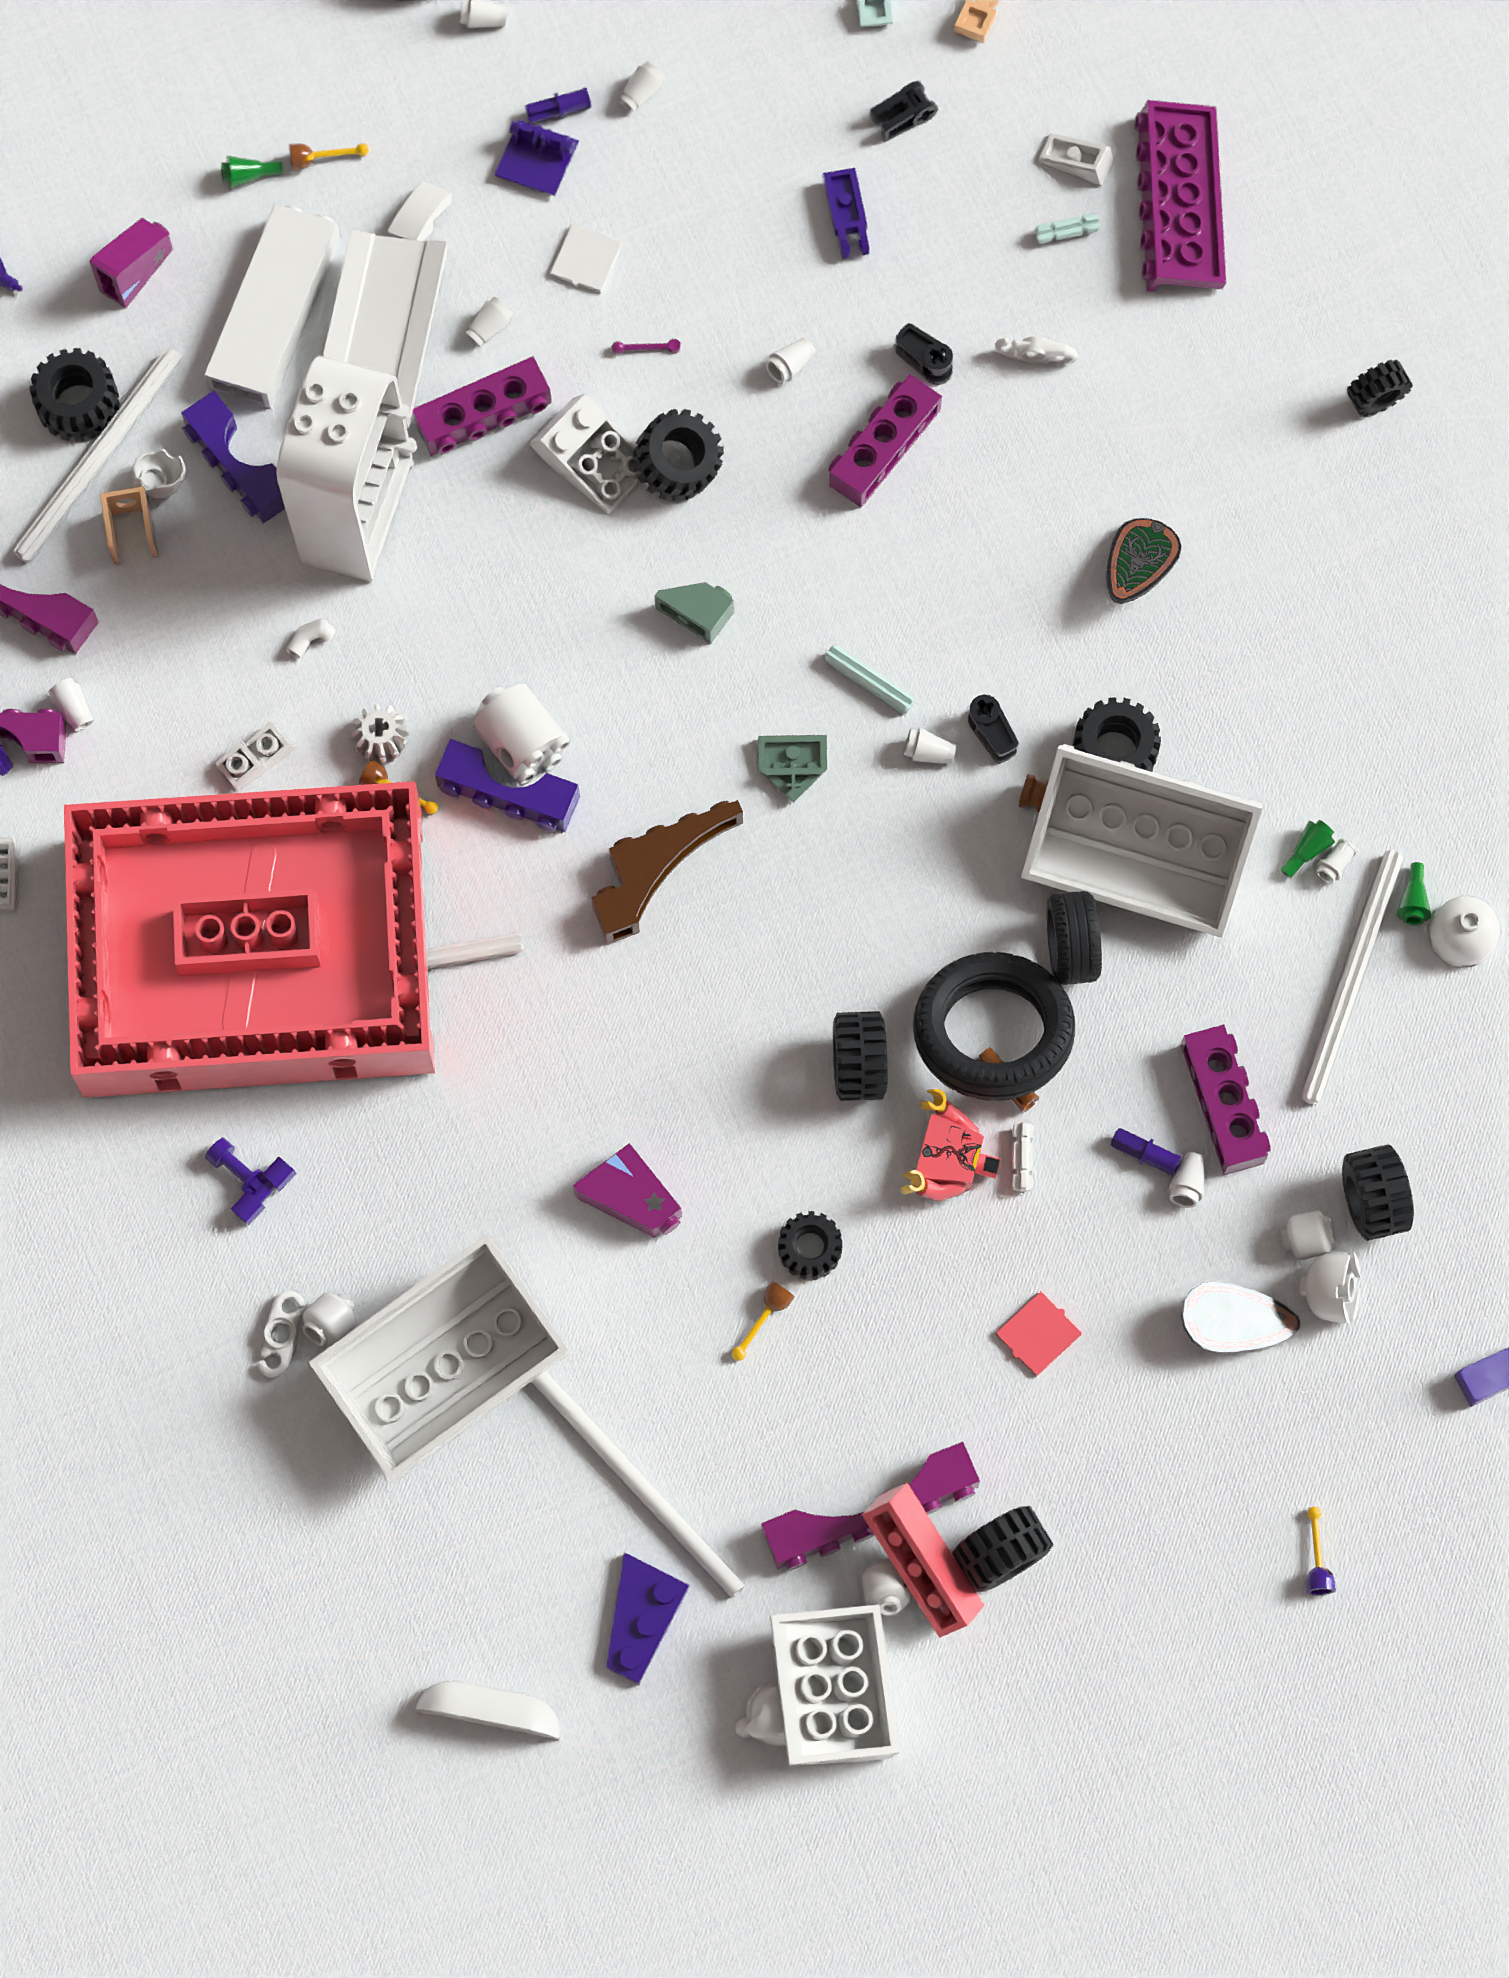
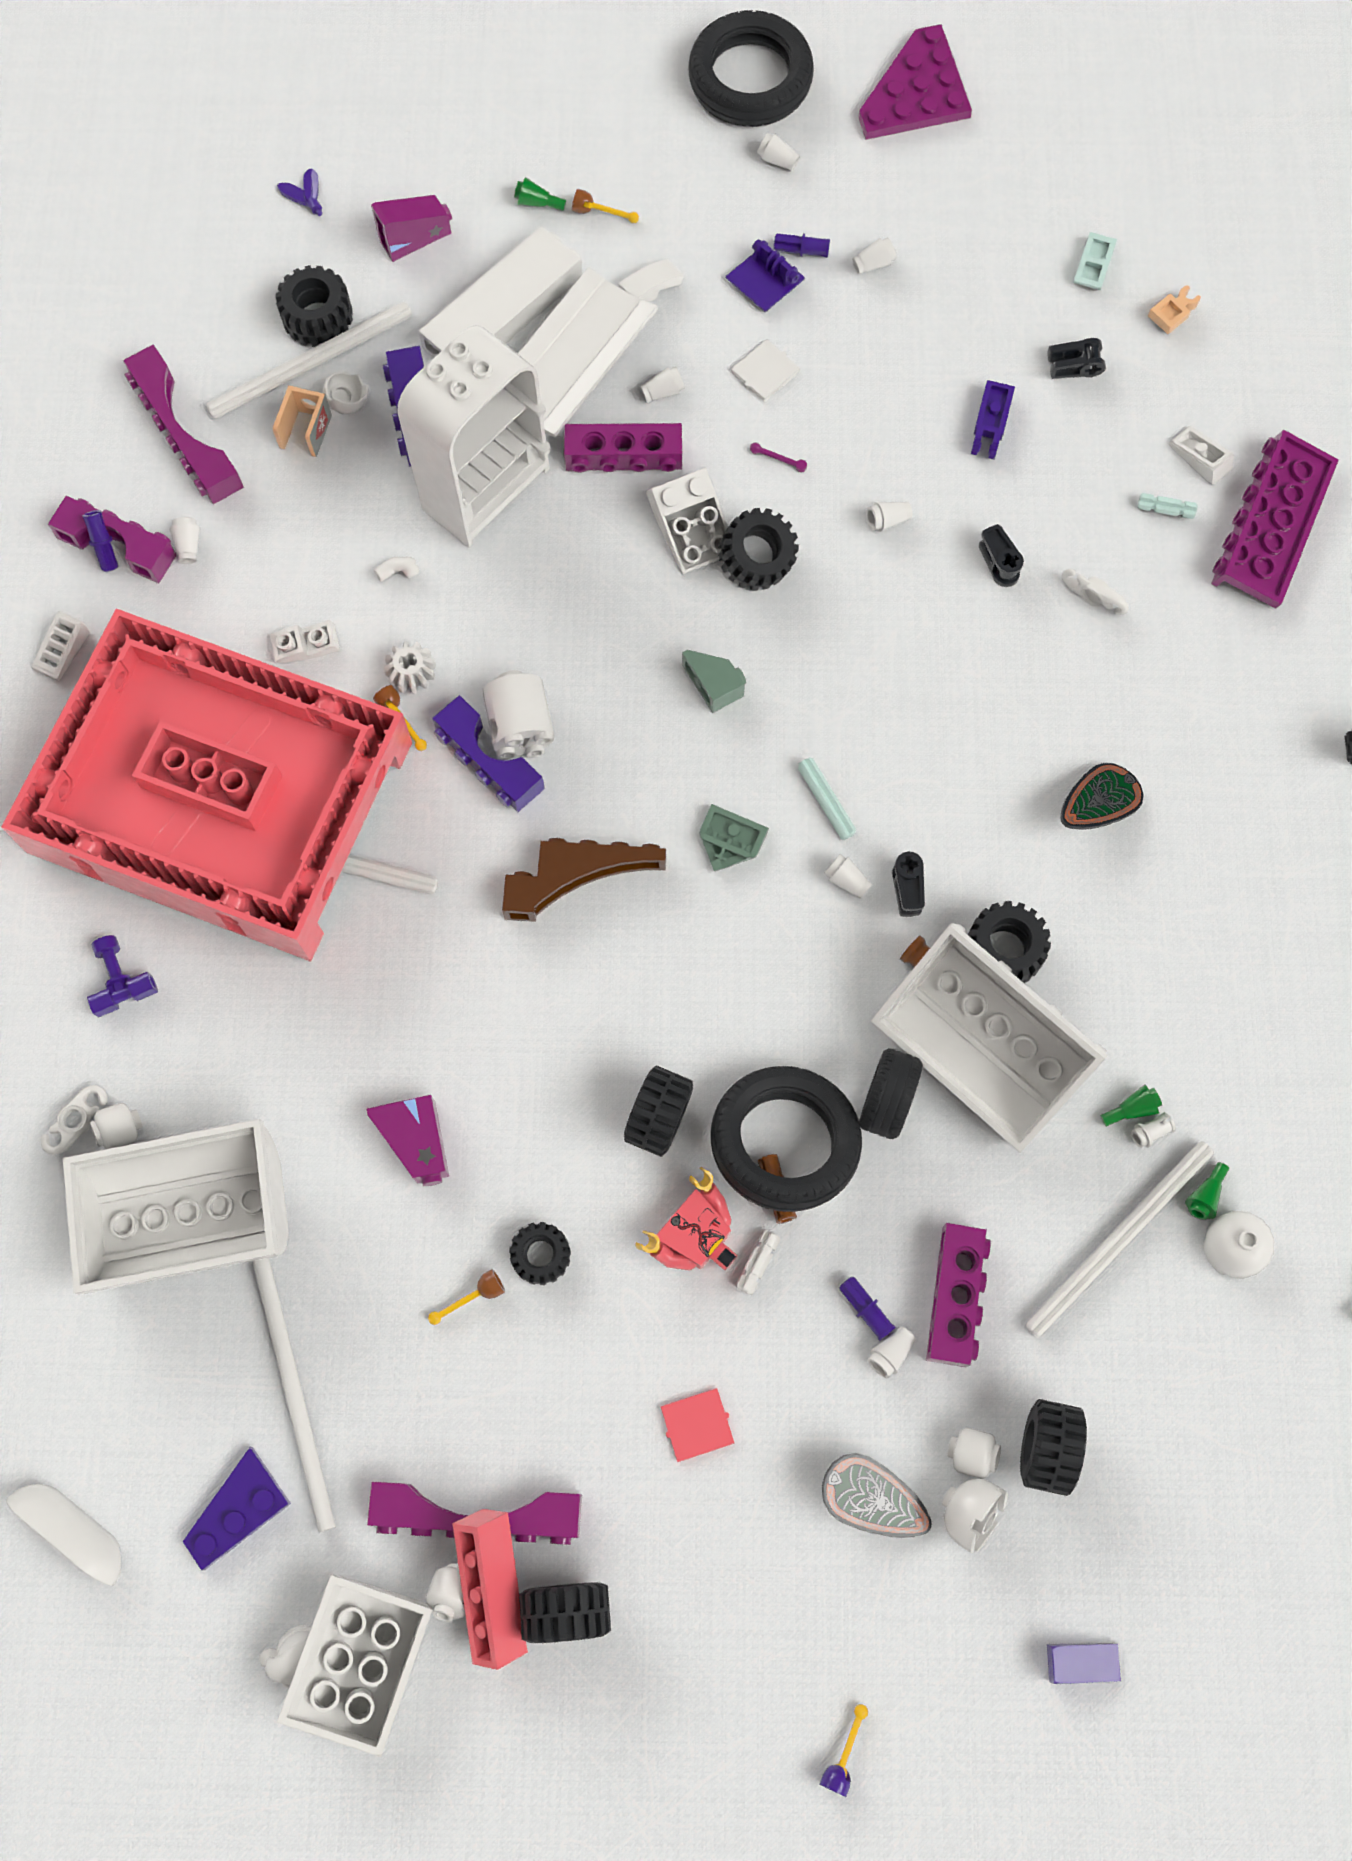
camera: 25 degrees right, 0 degrees up
(861, 482) = (899, 636): magenta brick -> none

